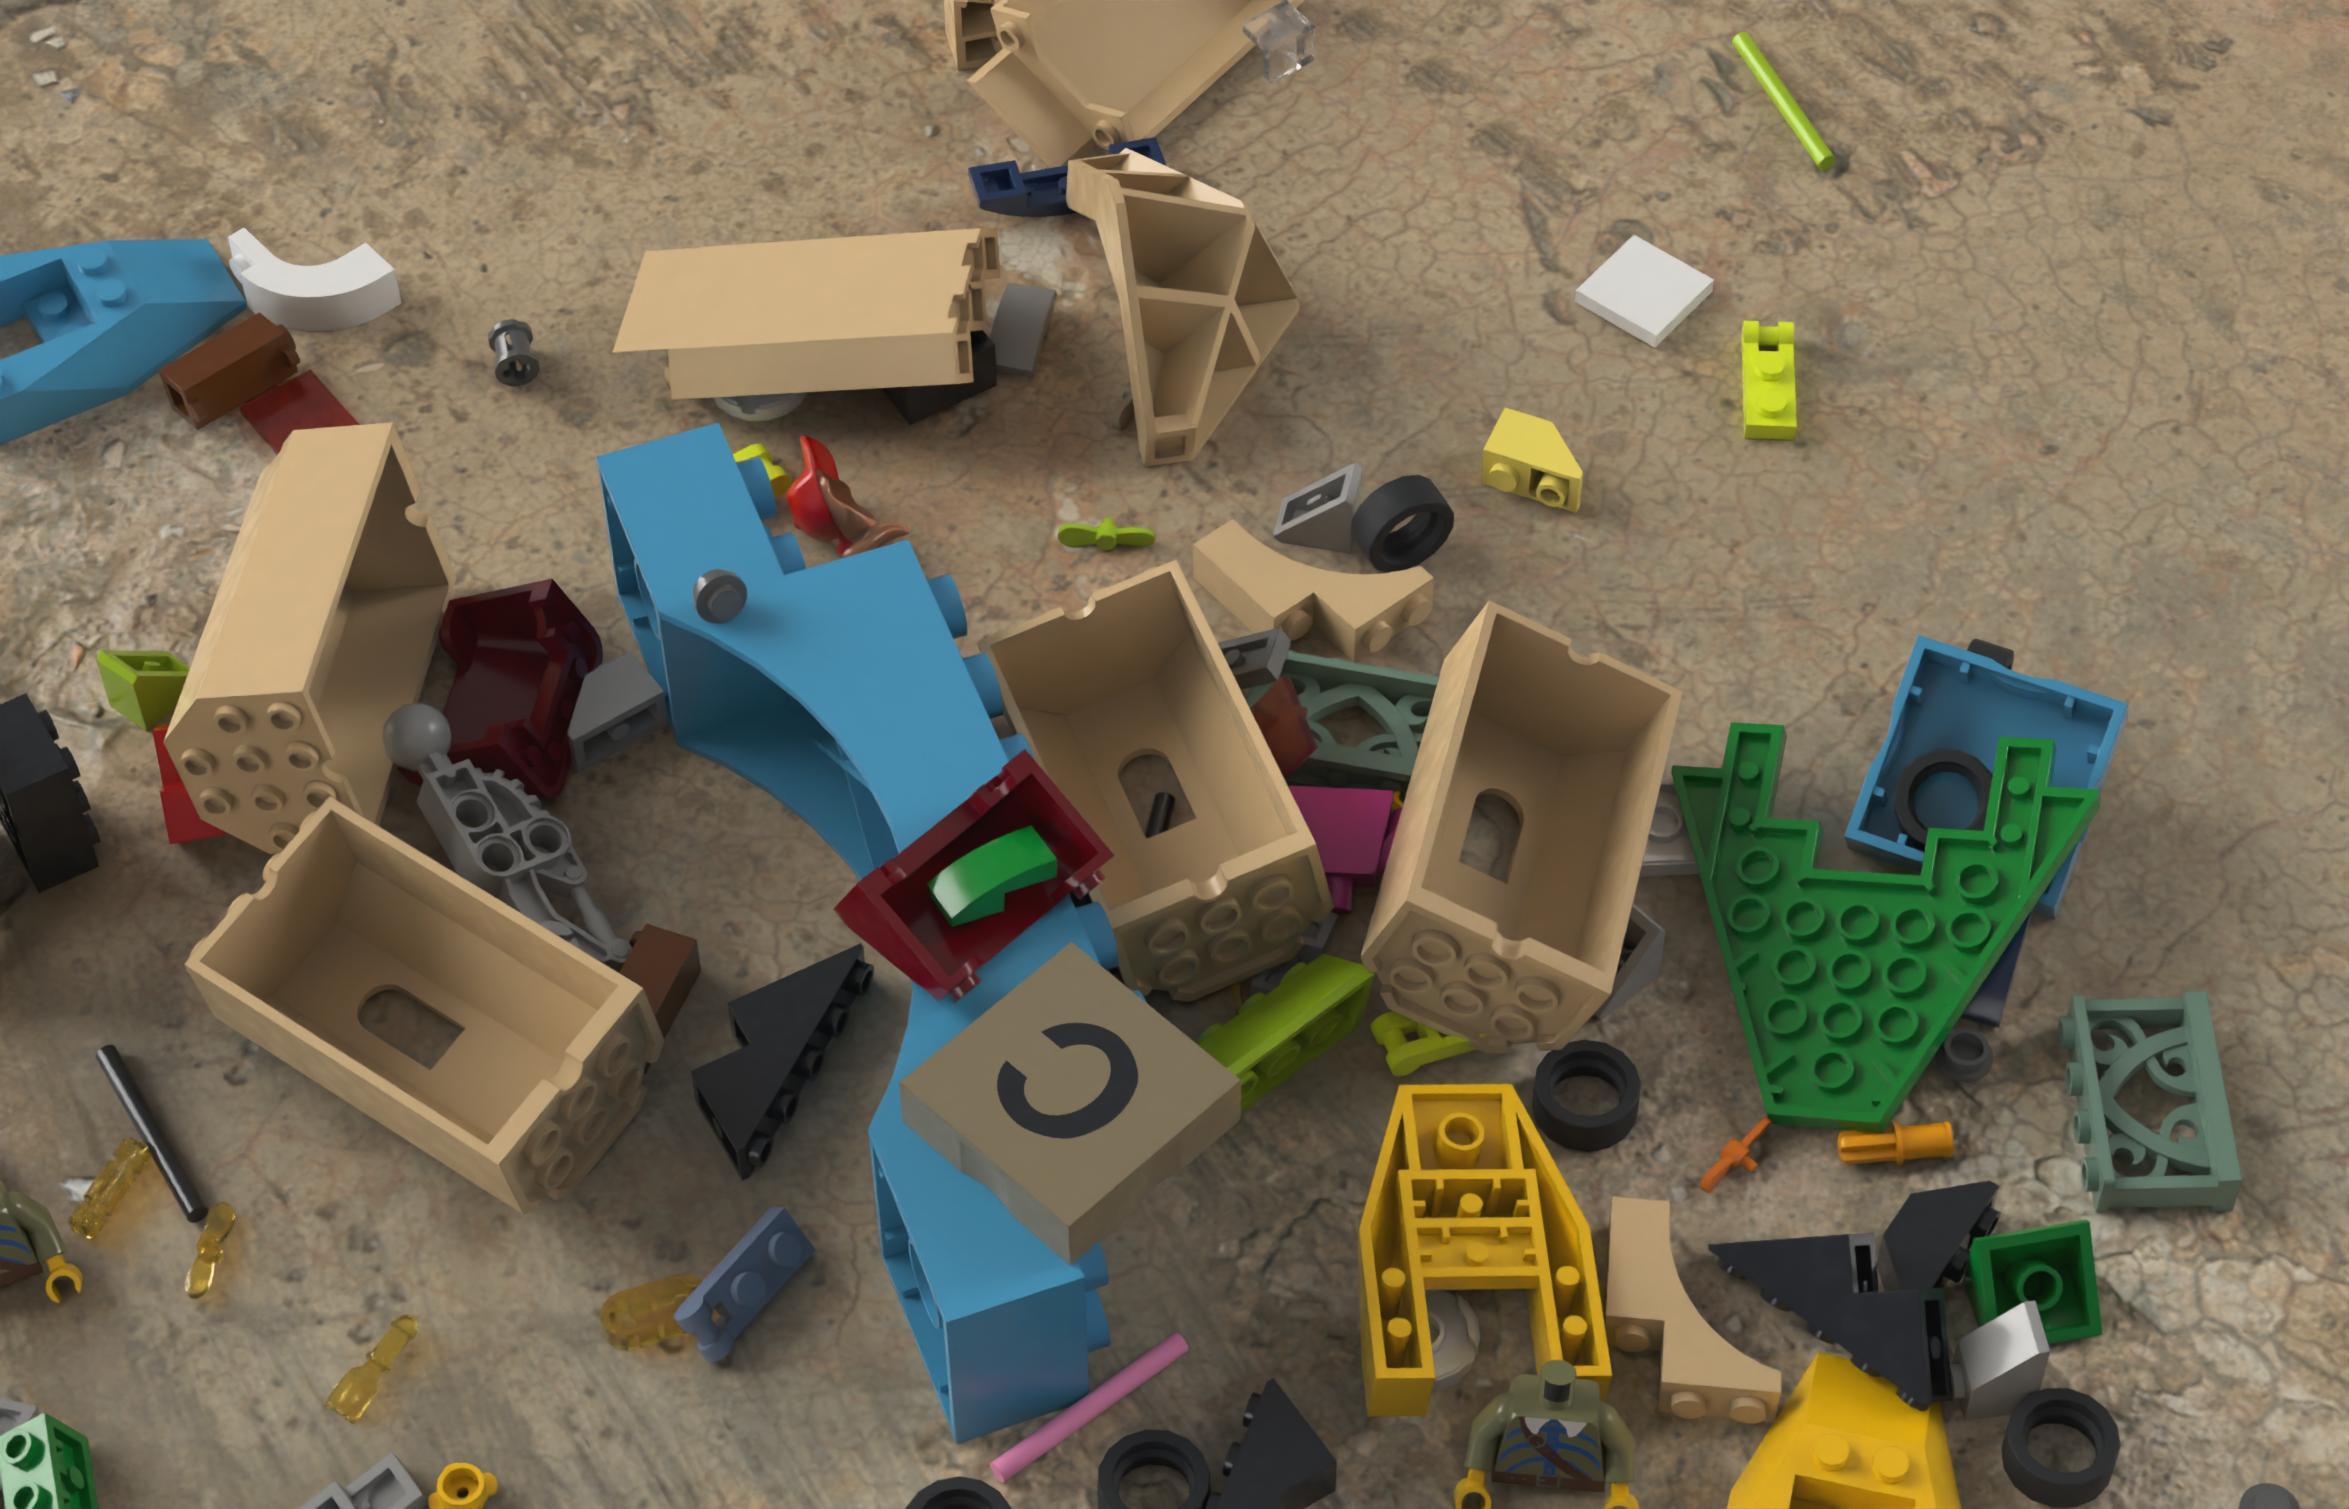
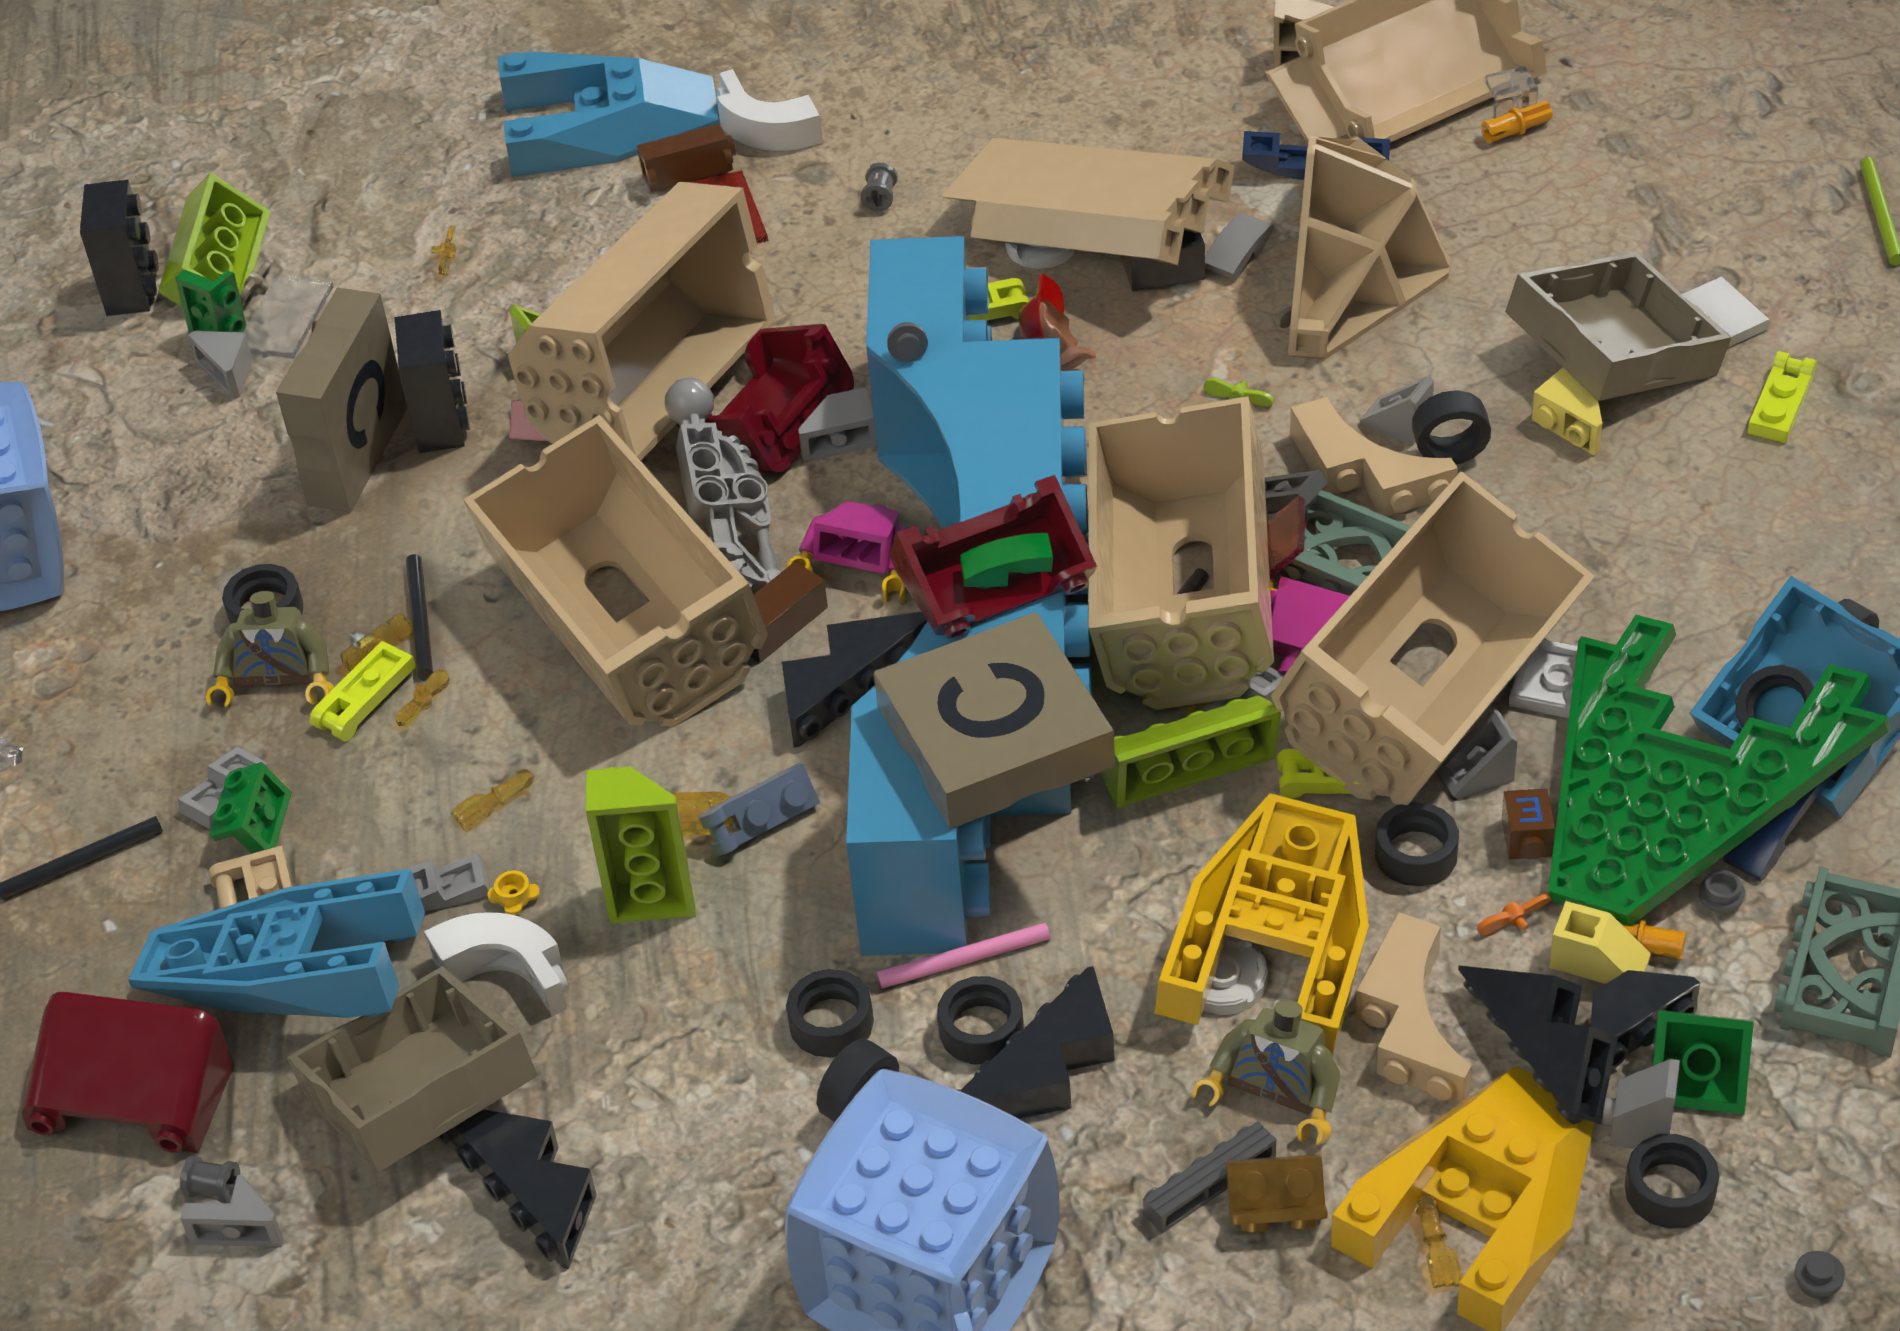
camera: 25 degrees right, 5 degrees down
(123, 1263) = (362, 690): none -> neon yellow plate
(637, 1390) = (638, 846): none -> lime slope
(716, 867) = (855, 538): none -> dark pink torso
(1296, 76) = (1516, 121): none -> light orange axle
(1547, 335) = (1617, 325): none -> dark tan tile
(1708, 1032) = (1528, 823): none -> reddish brown brick
(1855, 1173) = (1594, 945): none -> light yellow slope

